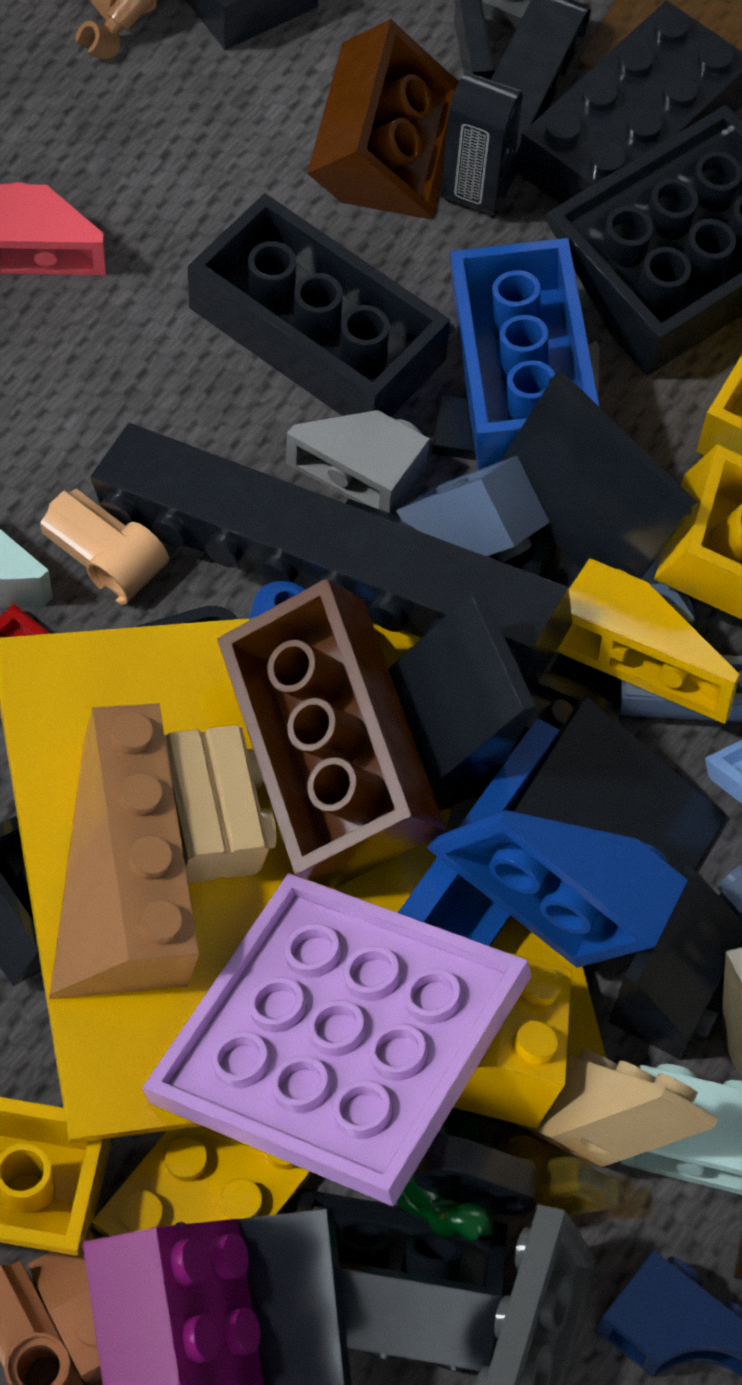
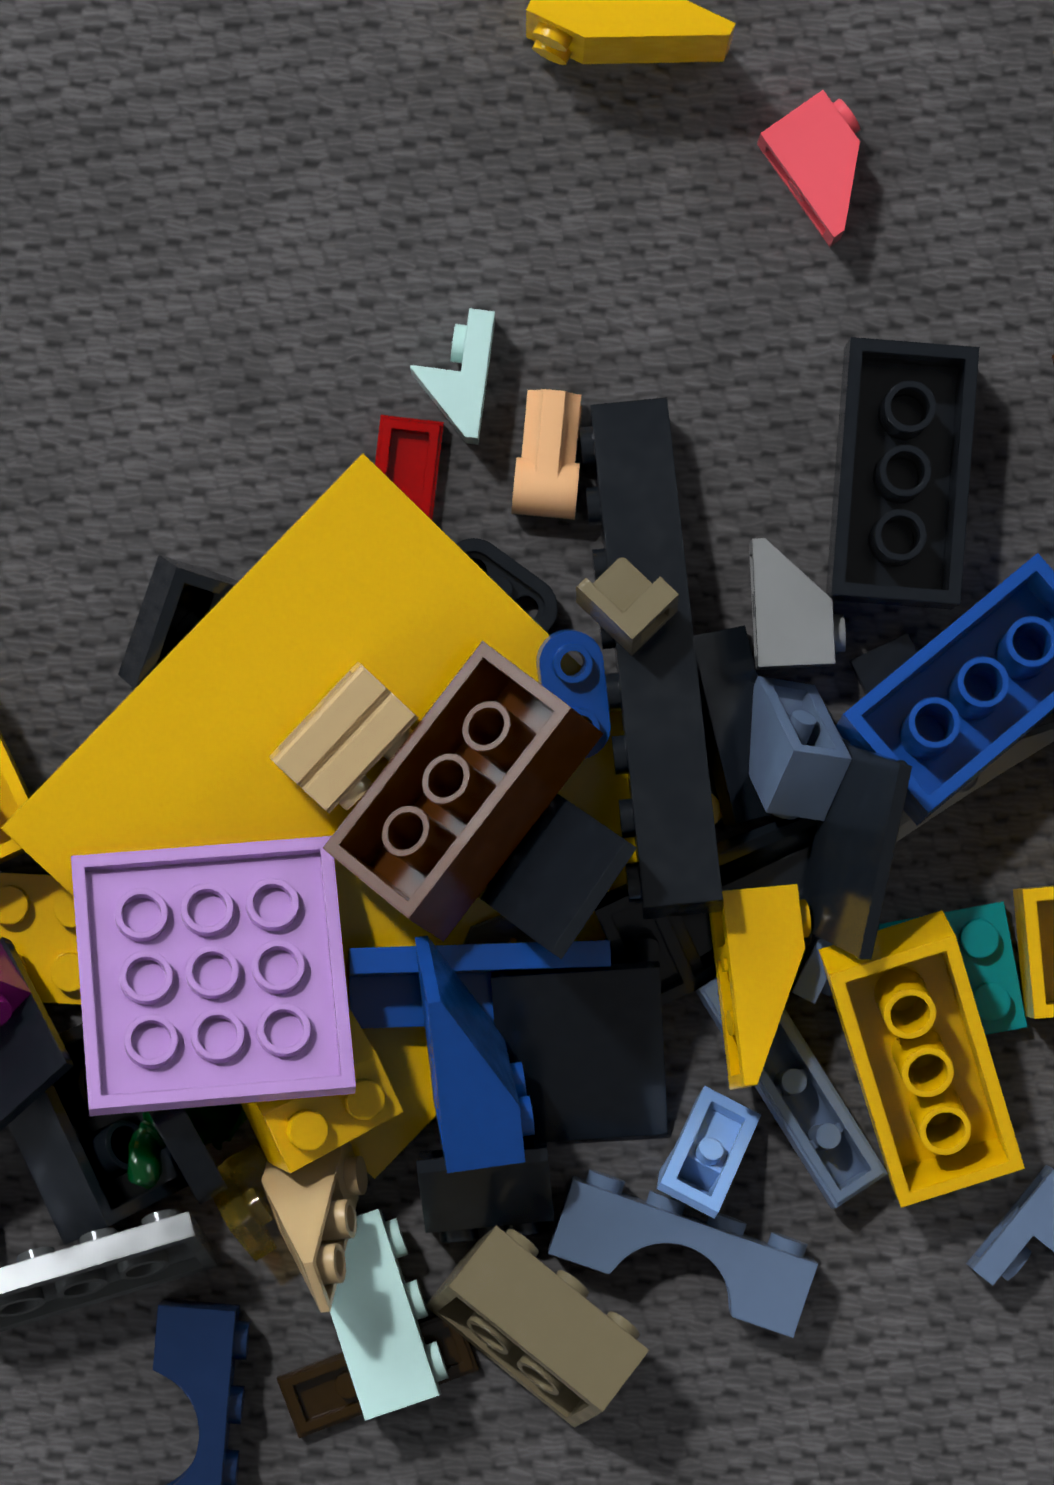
camera: 60 degrees right, 25 degrees up
(126, 879) = (230, 715): medium nougat wedge -> none
(272, 526) = (628, 604): none -> dark tan panel

